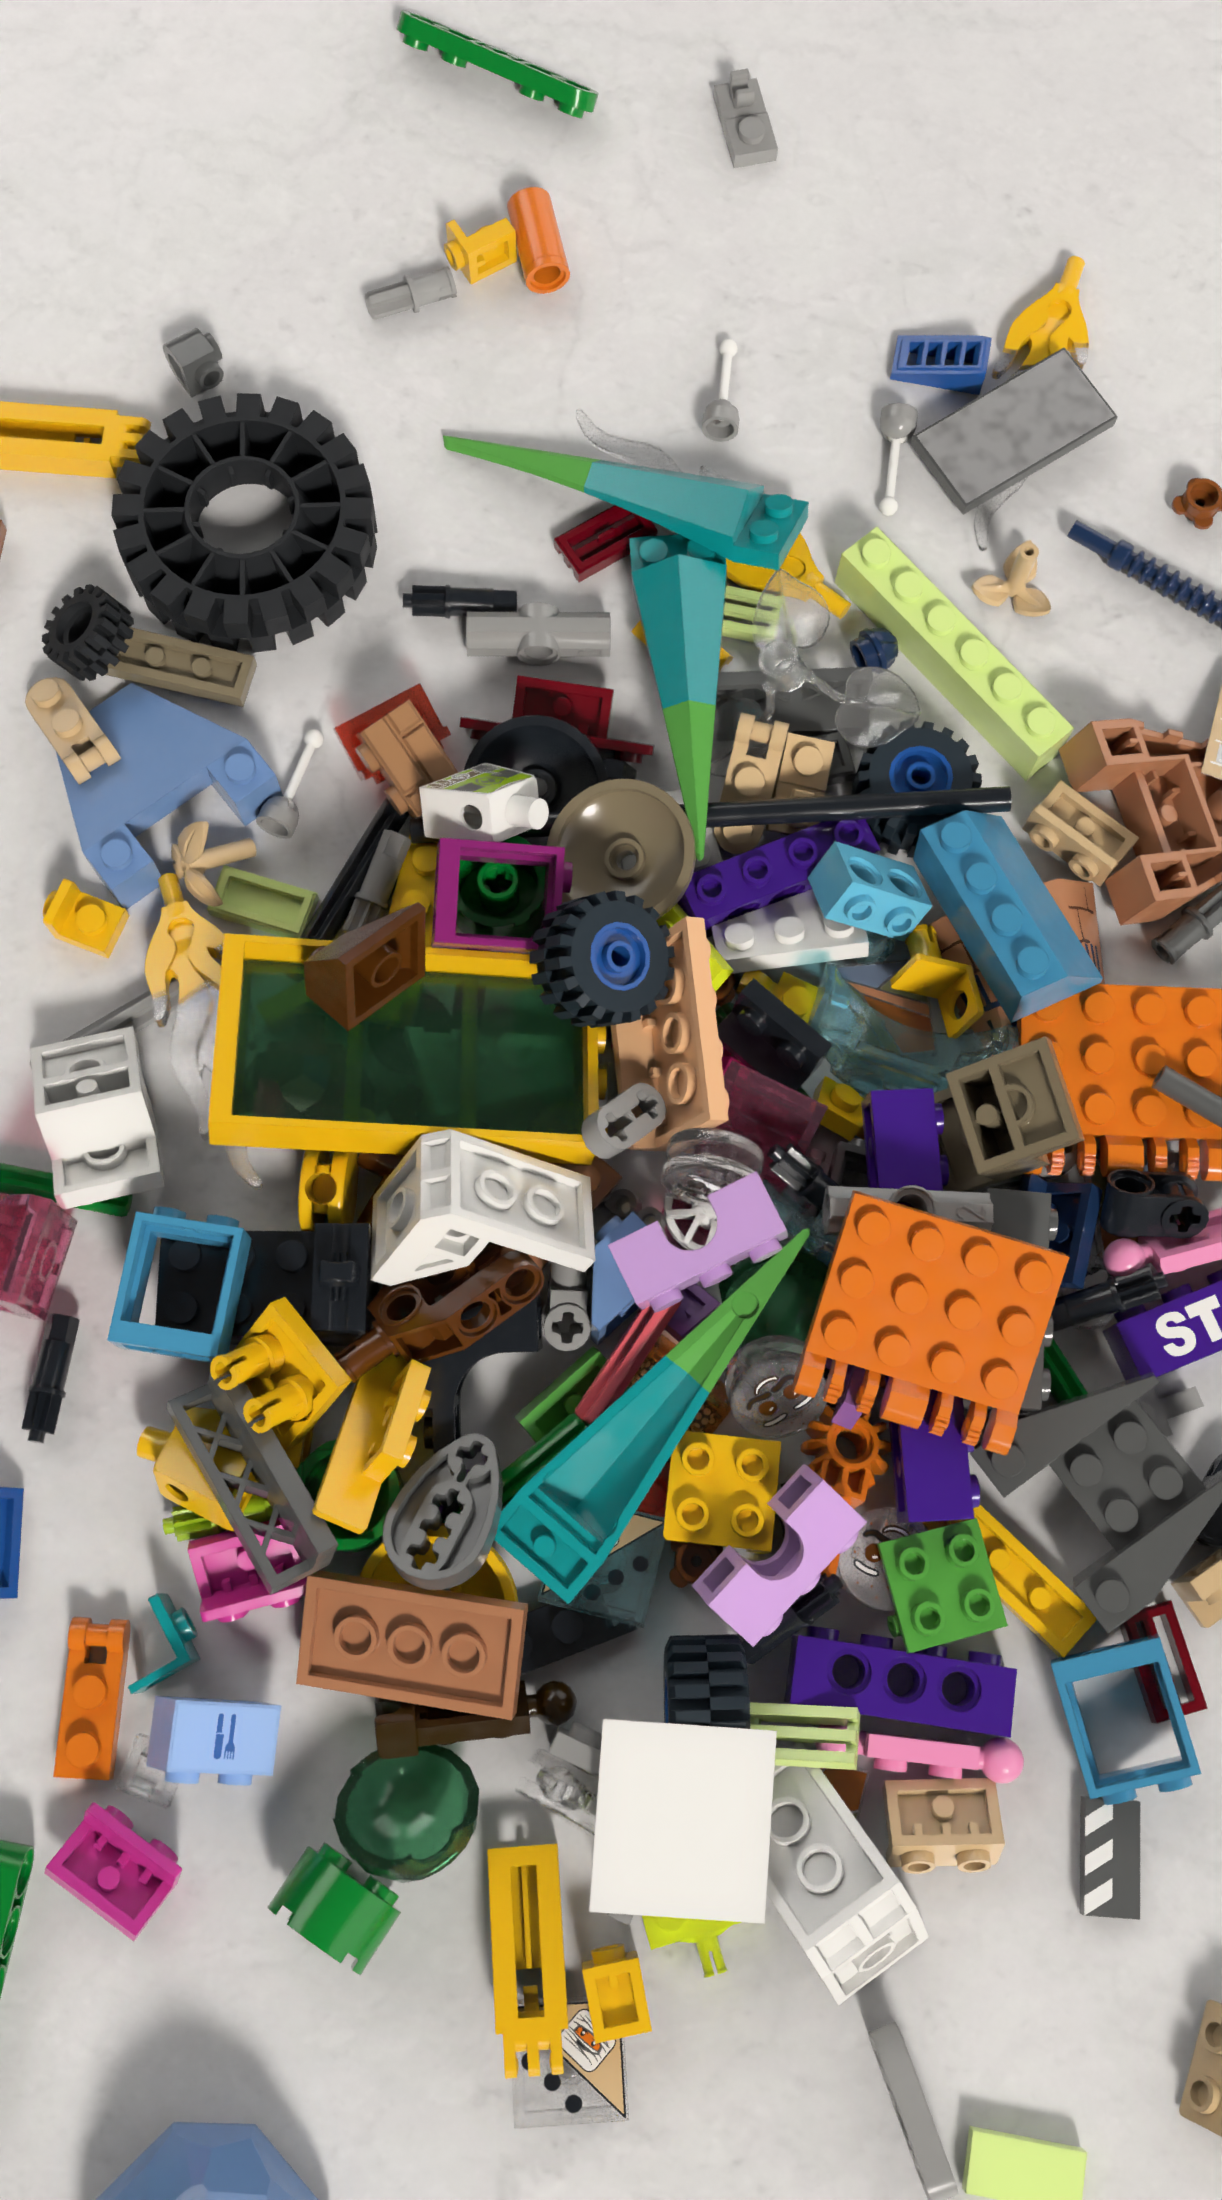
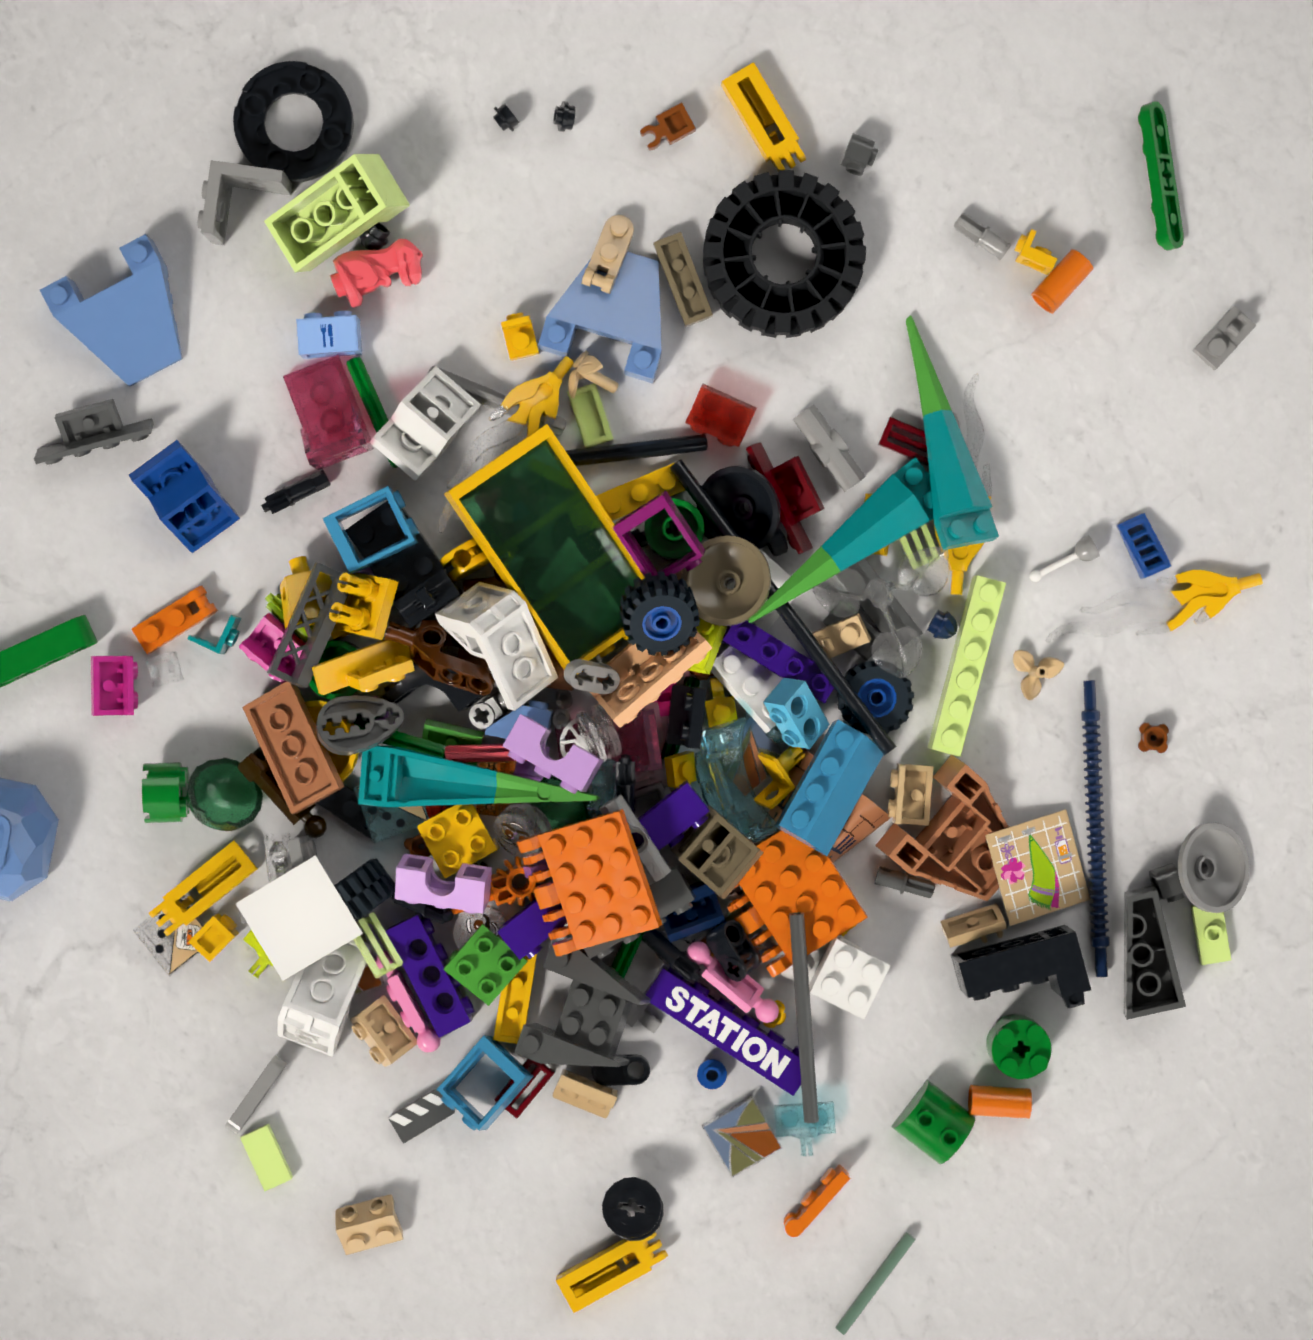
camera: 55 degrees right, 15 degrees up
(87, 632) = (664, 211): black tyre -> none
(213, 1738) = (194, 688): light blue brick -> none
(279, 814) = (641, 390): light grey hinge -> none
(368, 966) = (577, 503): reddish brown slope -> none
(379, 881) = (635, 467): light grey piece -> none
(405, 756) = (706, 439): medium nougat brick -> none
(457, 601) = (816, 389): black piece -> none
(502, 801) = (702, 497): white torso -> none
(720, 417) = (1024, 452): light grey hinge -> none
(750, 777) = (822, 612): tan plate -> none
(1013, 430) = (1124, 613): flat silver tile -> none

